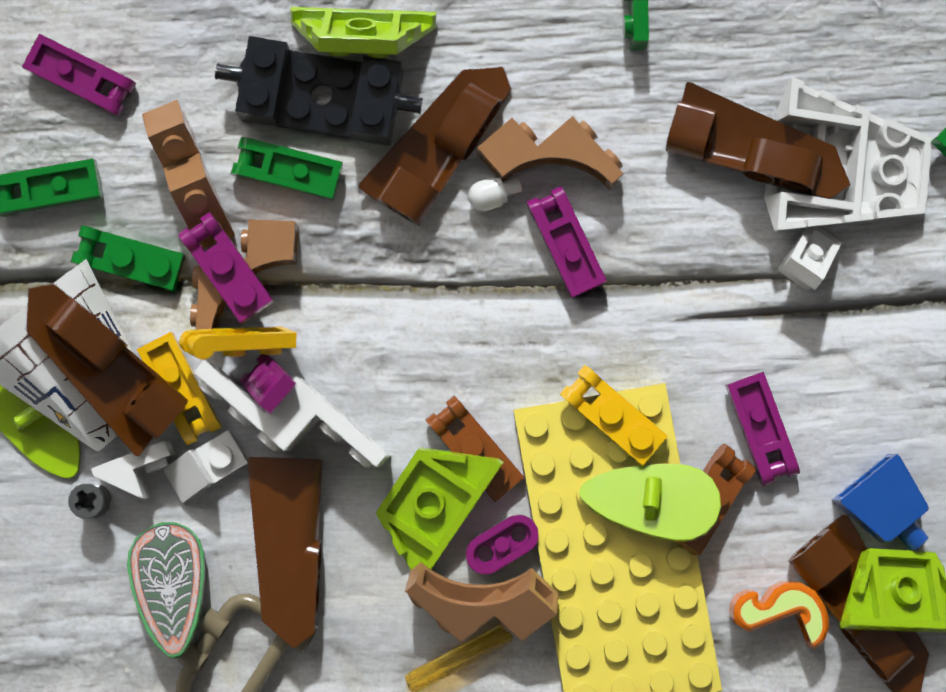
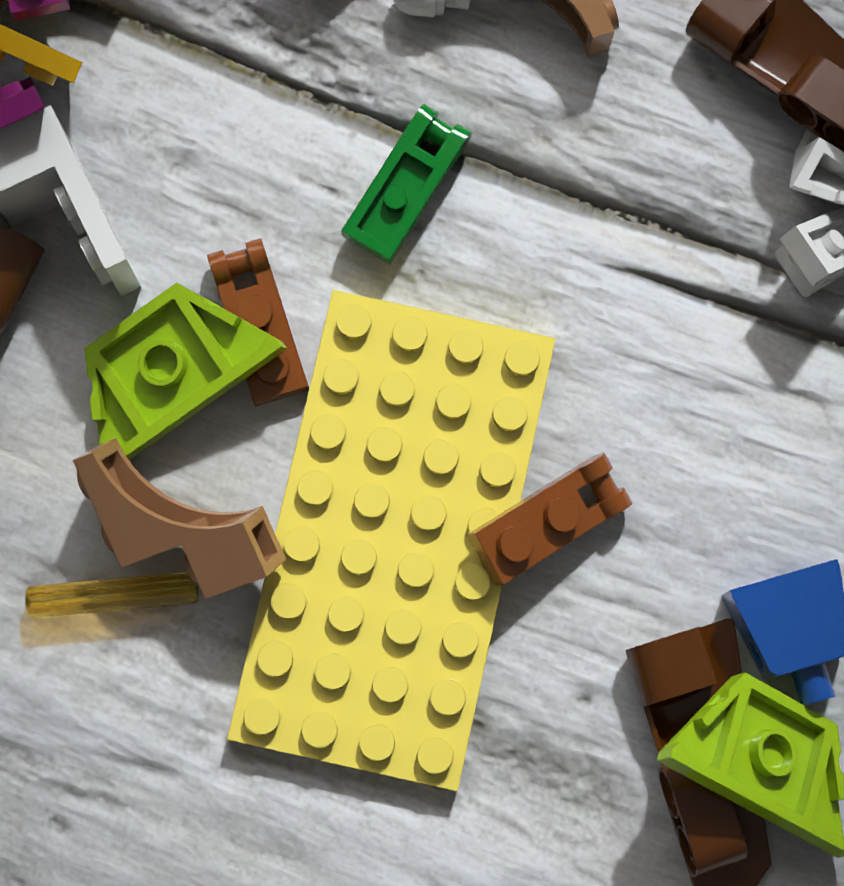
camera: 20 degrees right, 5 degrees down
(503, 546) = (239, 462): magenta plate -> none
(530, 323) = (405, 185): none -> green plate
(567, 243) = (500, 101): magenta plate -> none
(614, 416) = (465, 349): yellow plate -> none
(656, 500) = (474, 483): lime shield -> none
(762, 427) = (664, 452): magenta plate -> none
(780, 602) = (593, 701): orange animal -> none

